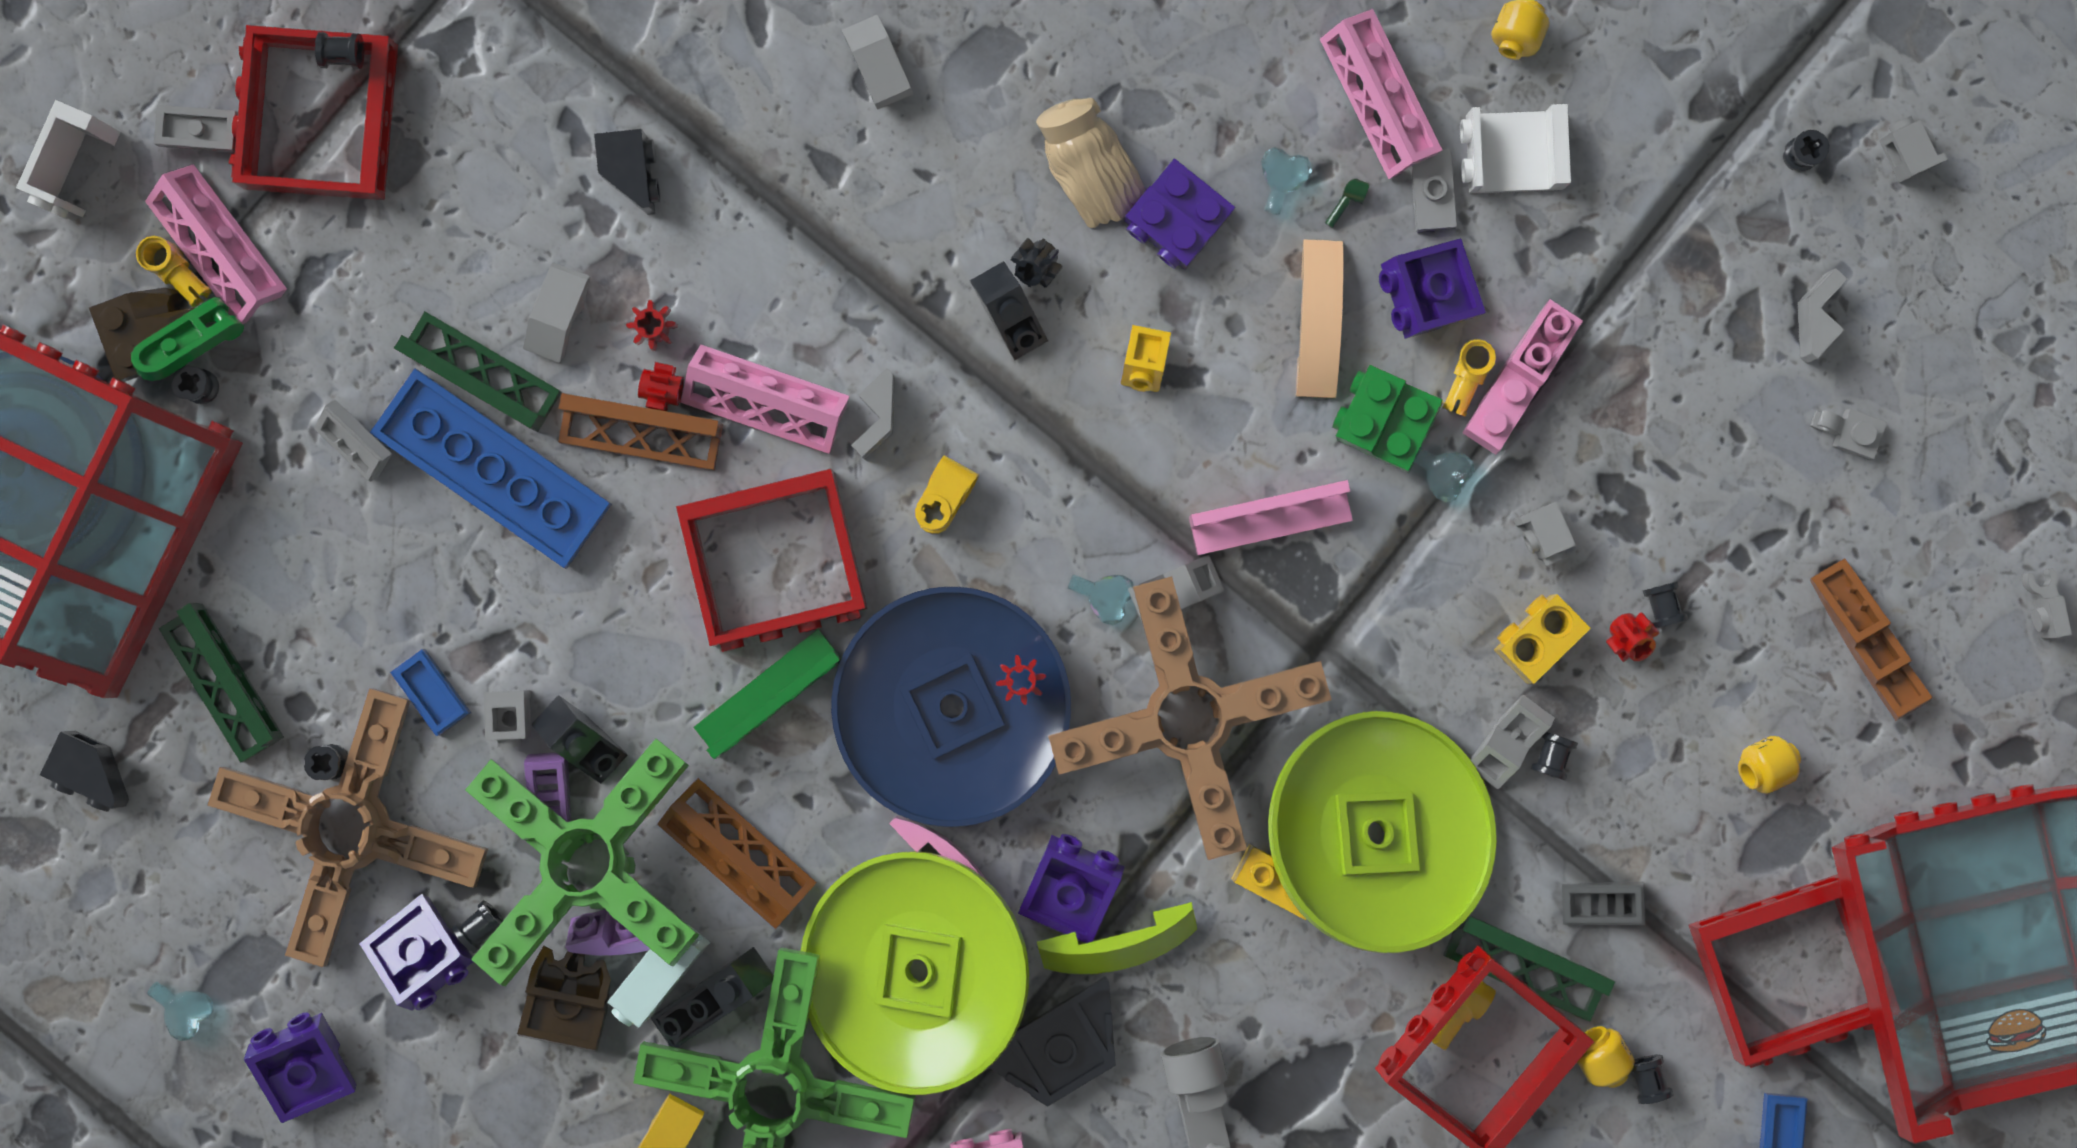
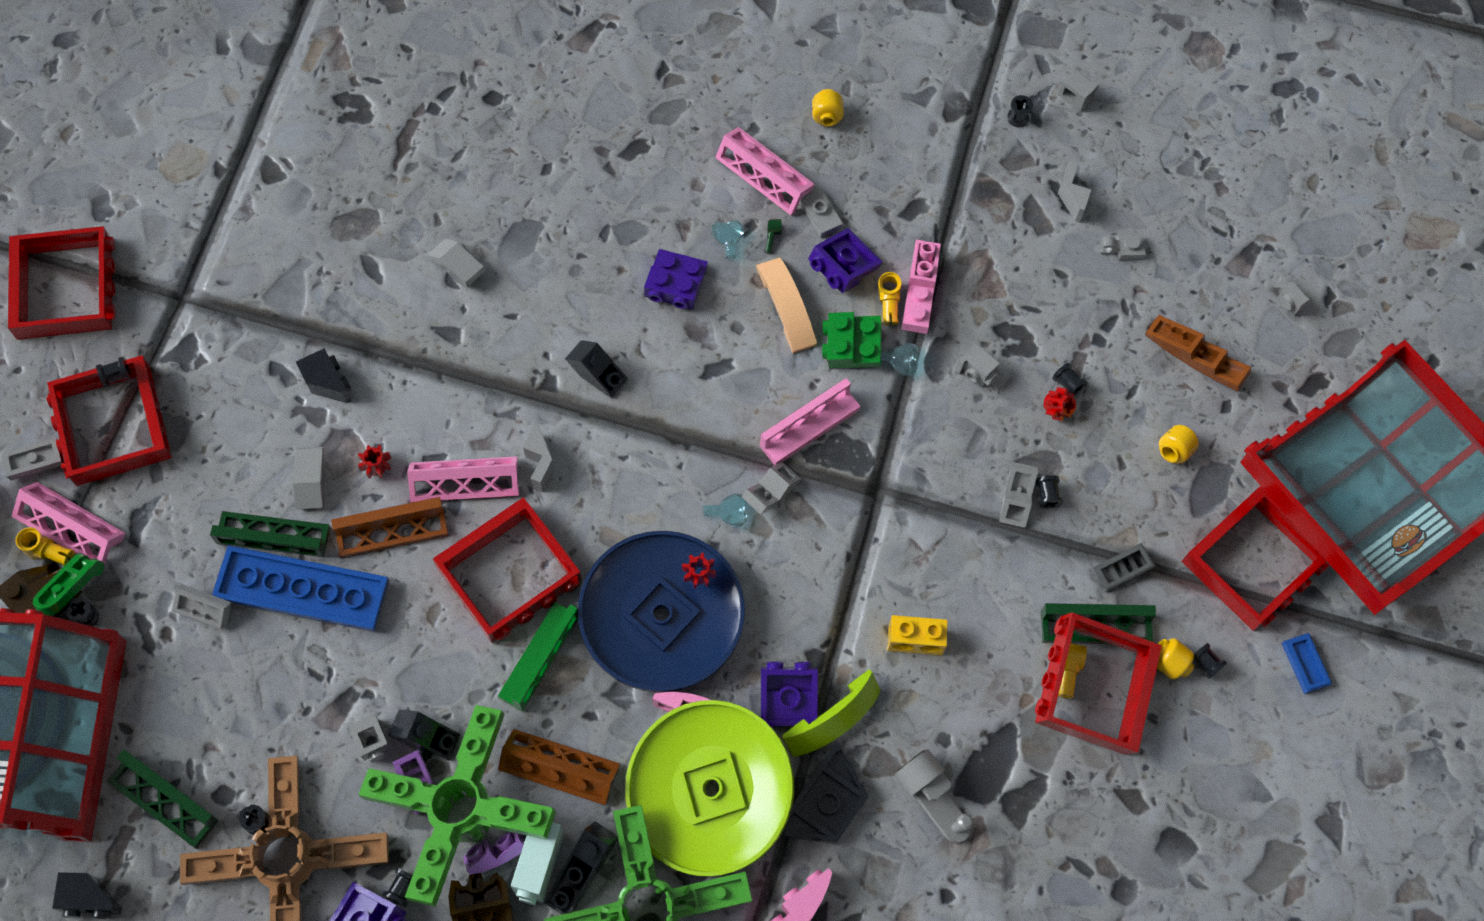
camera: 30 degrees left, 20 degrees down
(430, 692) = (311, 747): blue tile -> none
(660, 387) = (394, 493): red gear -> none
(947, 488) = (602, 487): yellow piece -> none
(1036, 263) = (606, 330): black gear -> none
(1089, 161) = (609, 268): tan hair -> none
(1145, 359) = (692, 364): yellow bracket -> none
(1231, 705) = (836, 536): medium nougat piece -> none
(1433, 822) = (967, 541): lime dish -> none
(1516, 150) = (858, 172): white panel -> none
(1547, 646) = (1004, 426): yellow brick -> none

